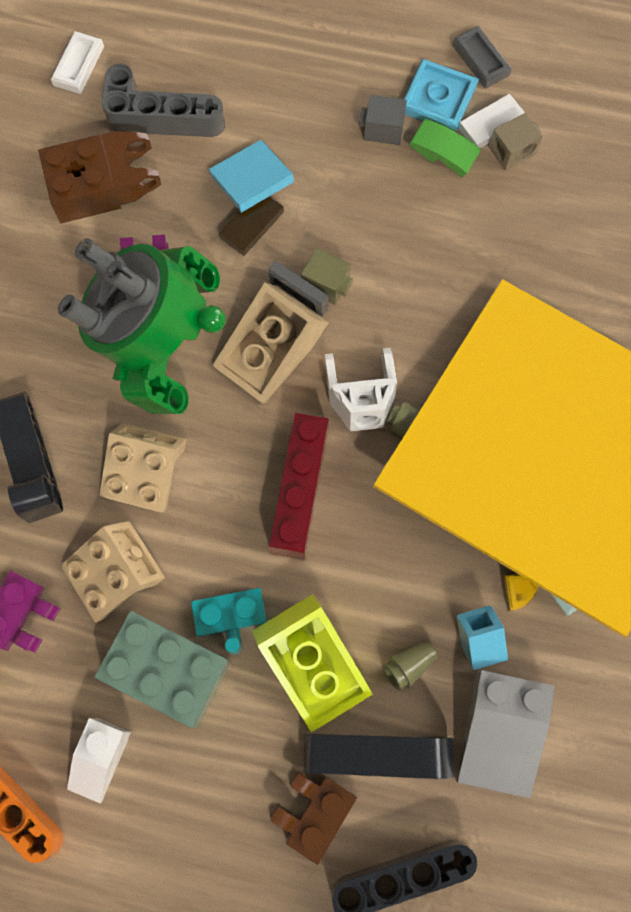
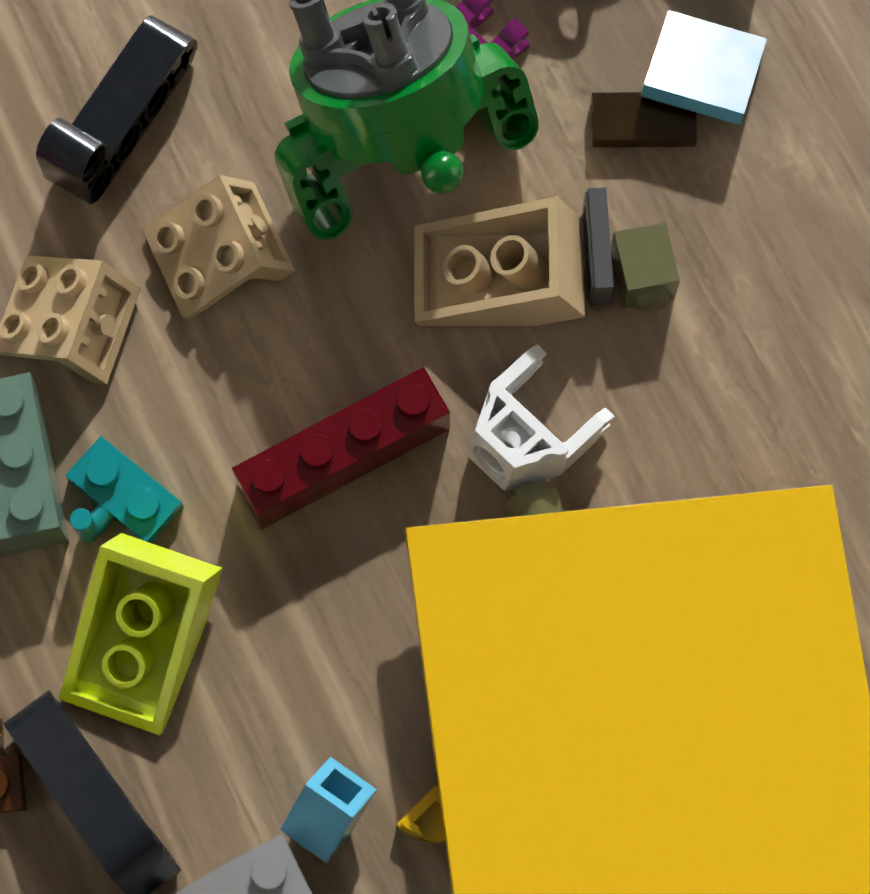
camera: 50 degrees right, 0 degrees up
(409, 665) = (229, 751): olive cone -> none

